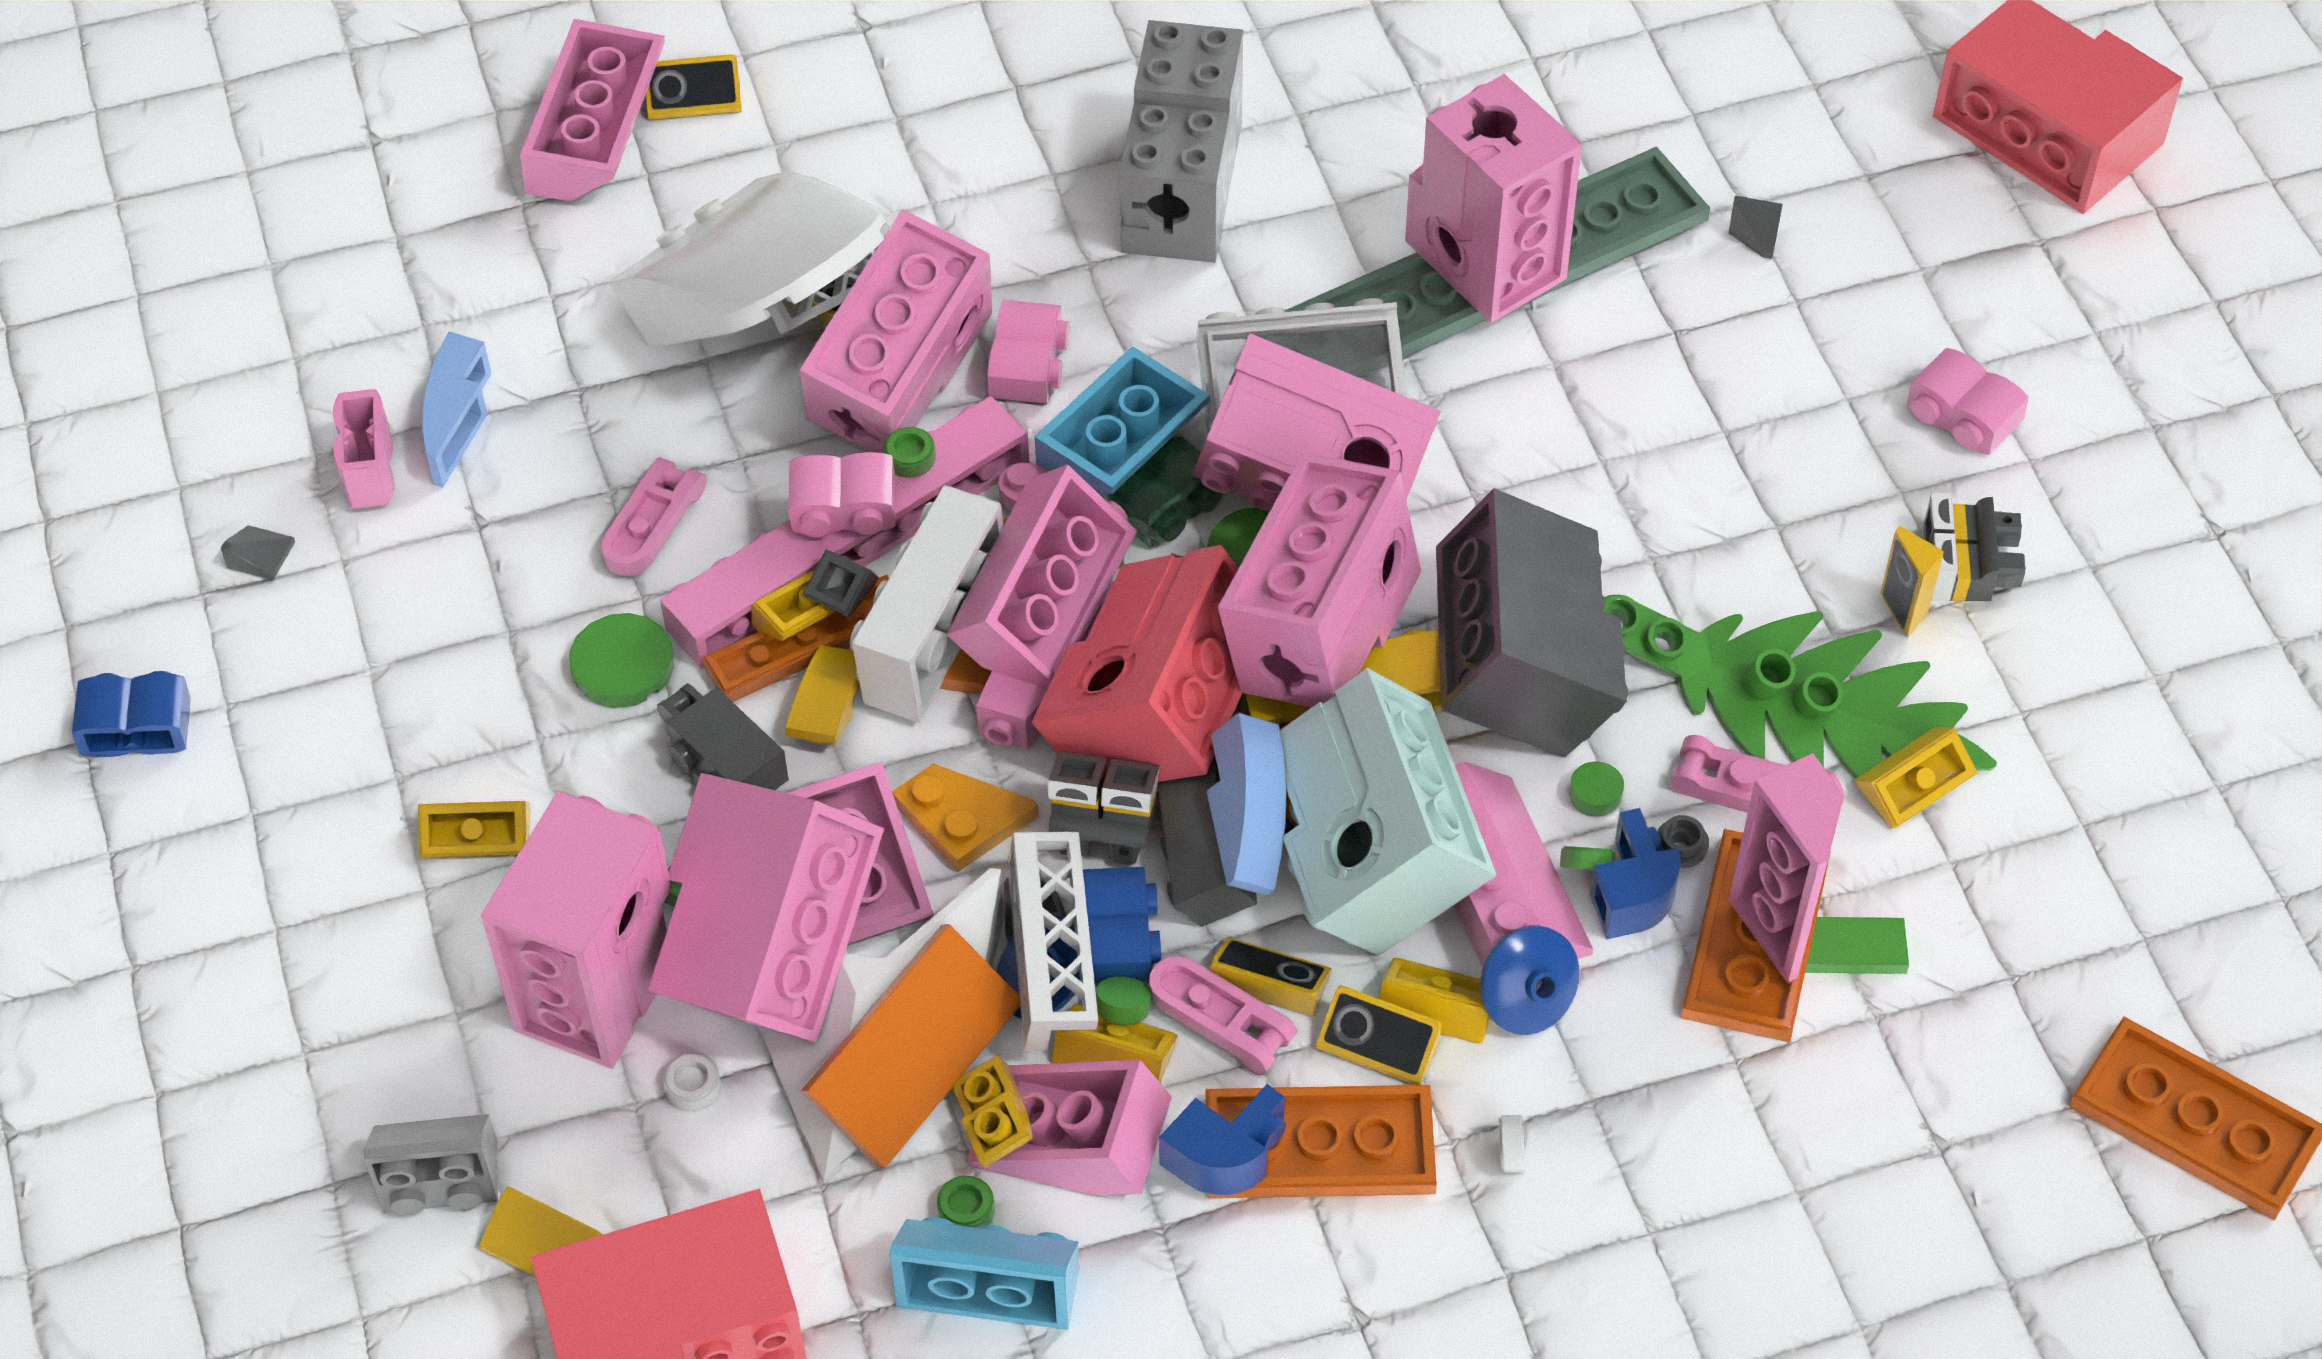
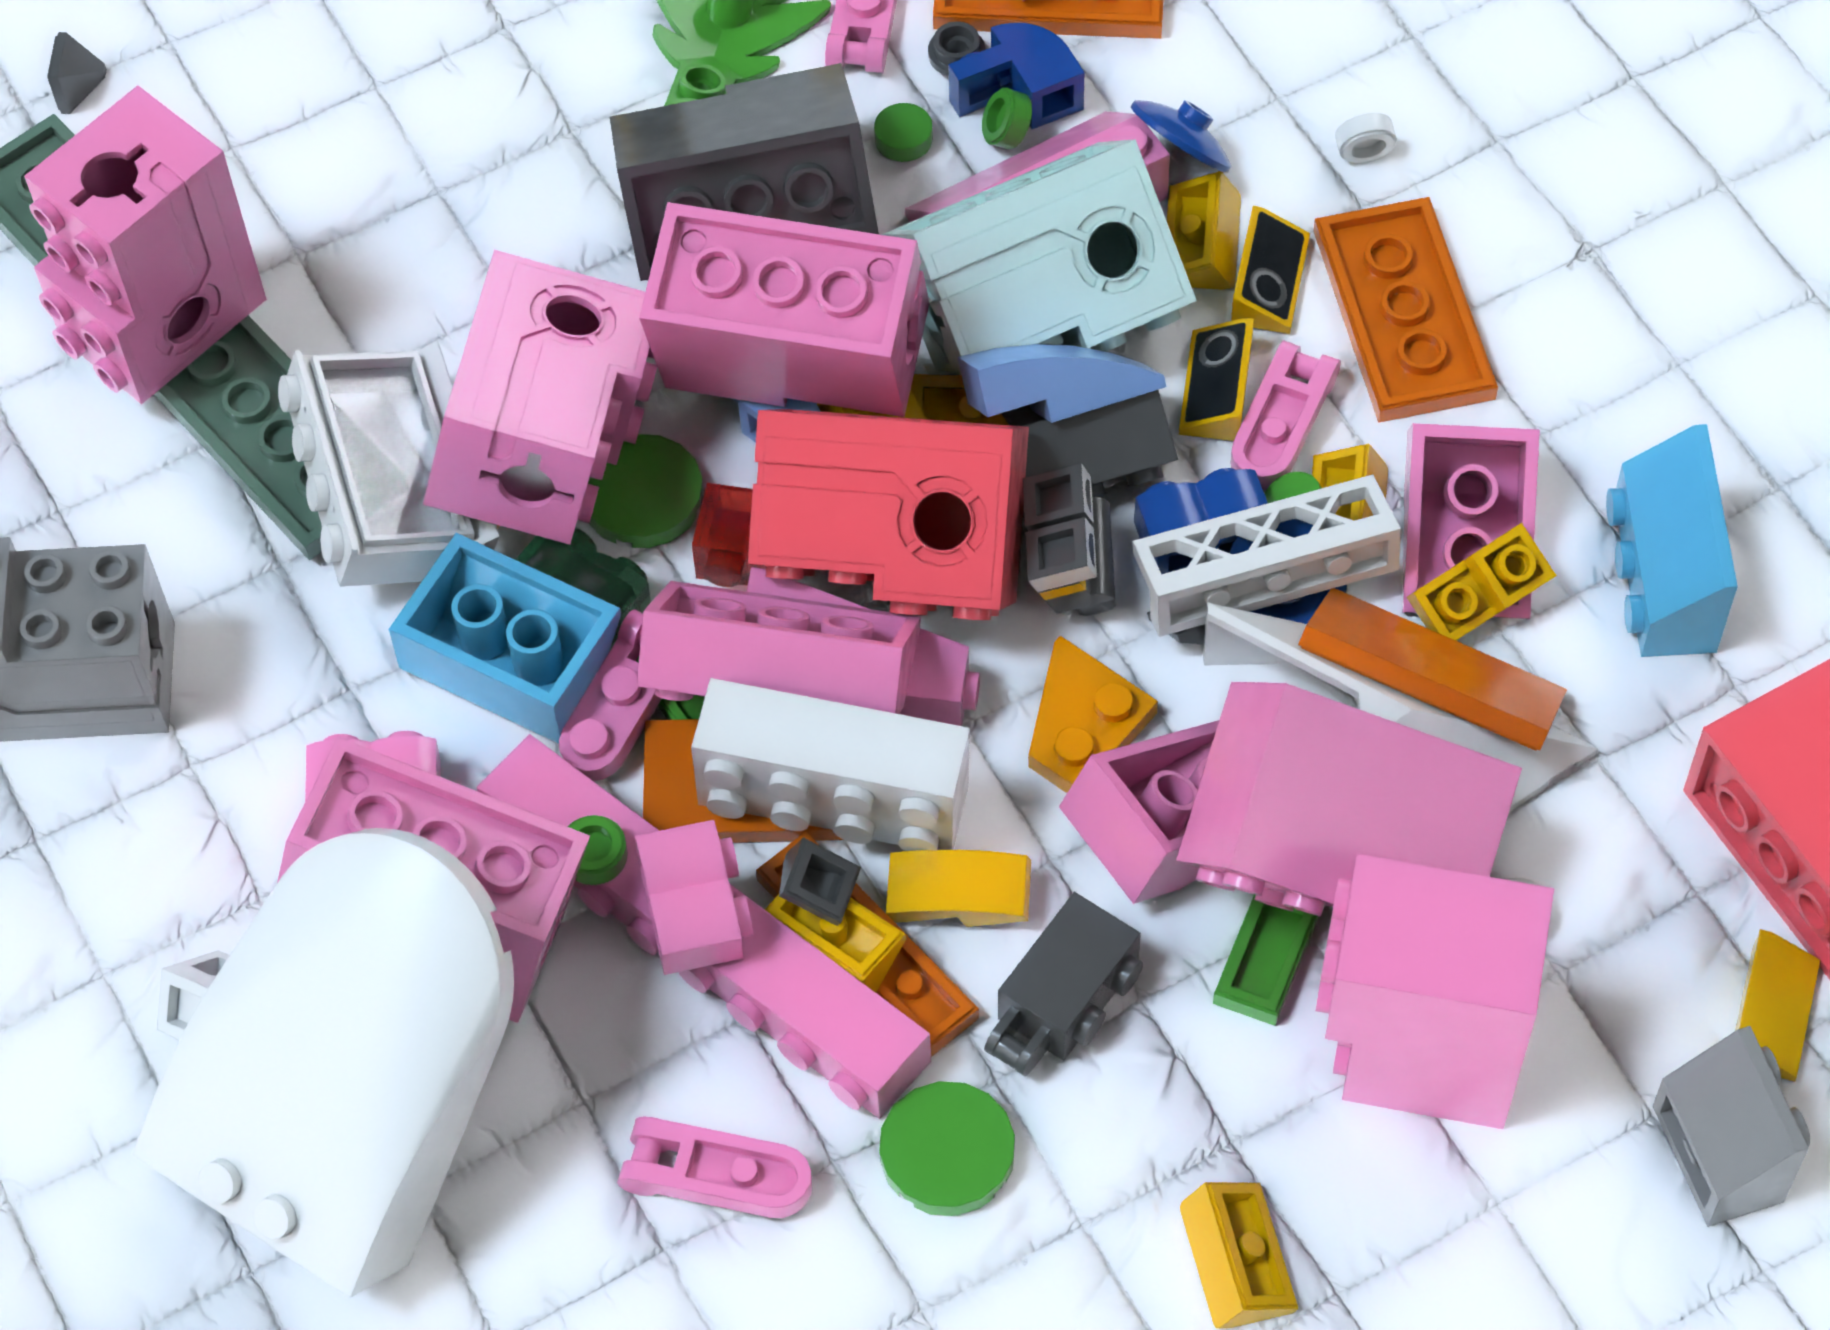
camera: 100 degrees left, 5 degrees up
(966, 1202) = (1583, 607): bright green tile -> none
(1219, 1154) = (1469, 355): blue brick -> none

